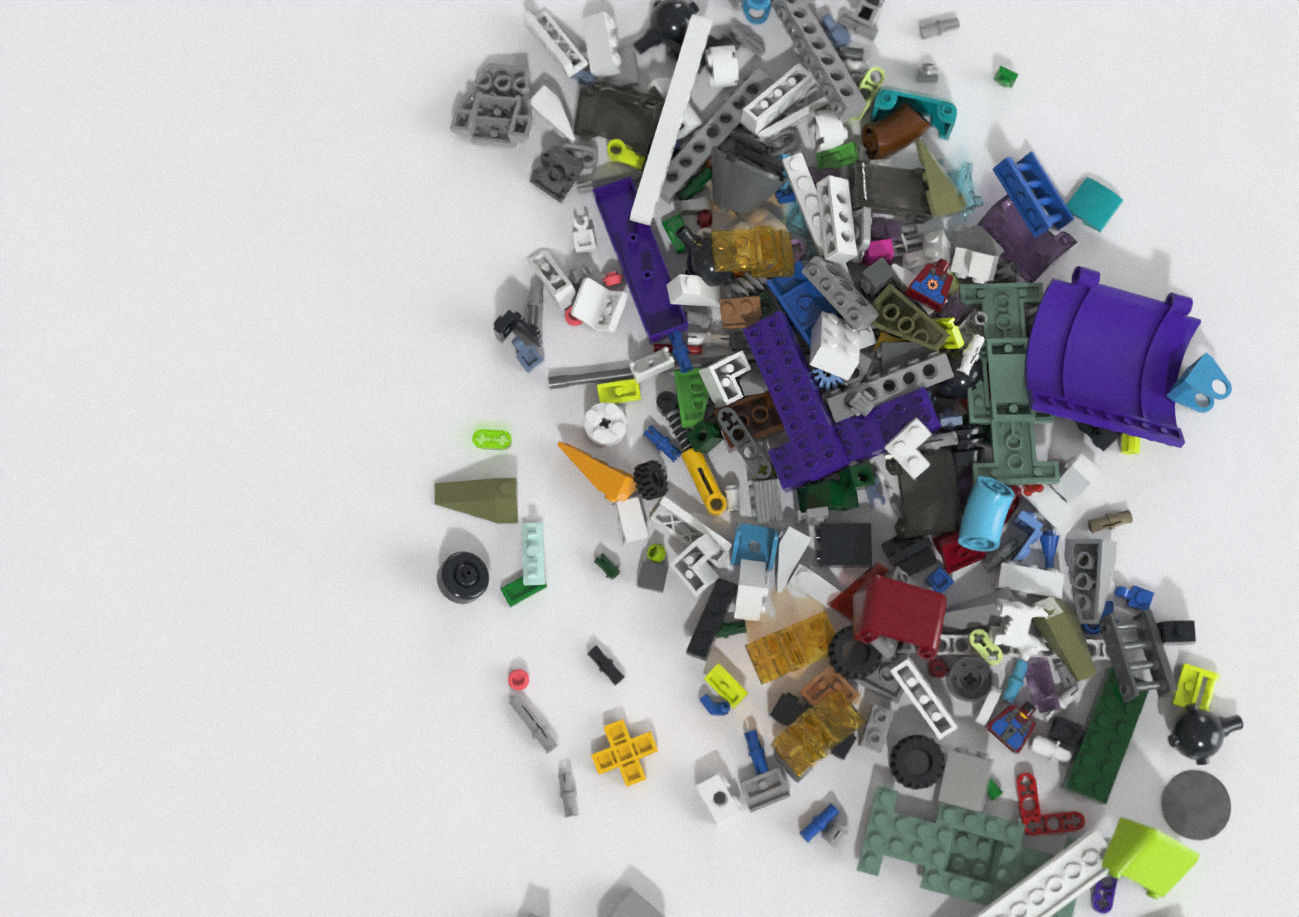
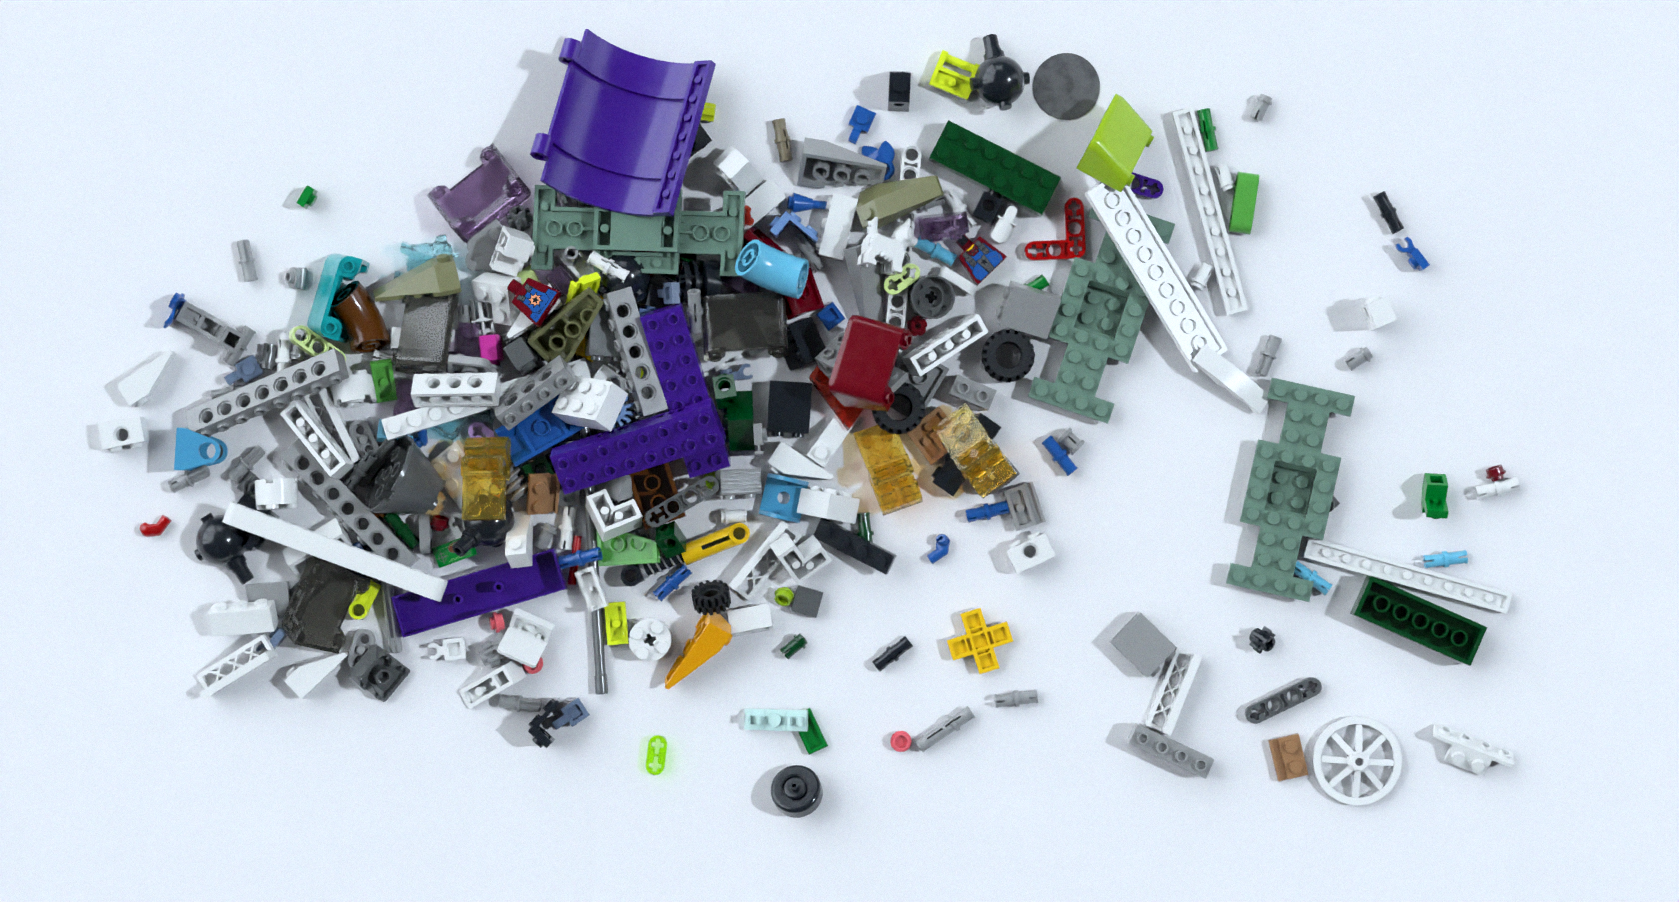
camera: 90 degrees left, 10 degrees up
(484, 498) = (717, 765): olive wedge -> none
(497, 108) = (304, 731): light grey wedge -> none
(726, 685) = (921, 536): neon yellow plate -> none
(861, 403) = (653, 382): light grey gear -> none
(904, 447) = (702, 343): white brick -> none
(1025, 201) = (446, 195): blue fence -> none
(1094, 204) = (451, 120): teal slope -> none
(1153, 649) = (914, 113): dark grey fence -> none
(1199, 380) = (649, 38): dark azure hose -> none

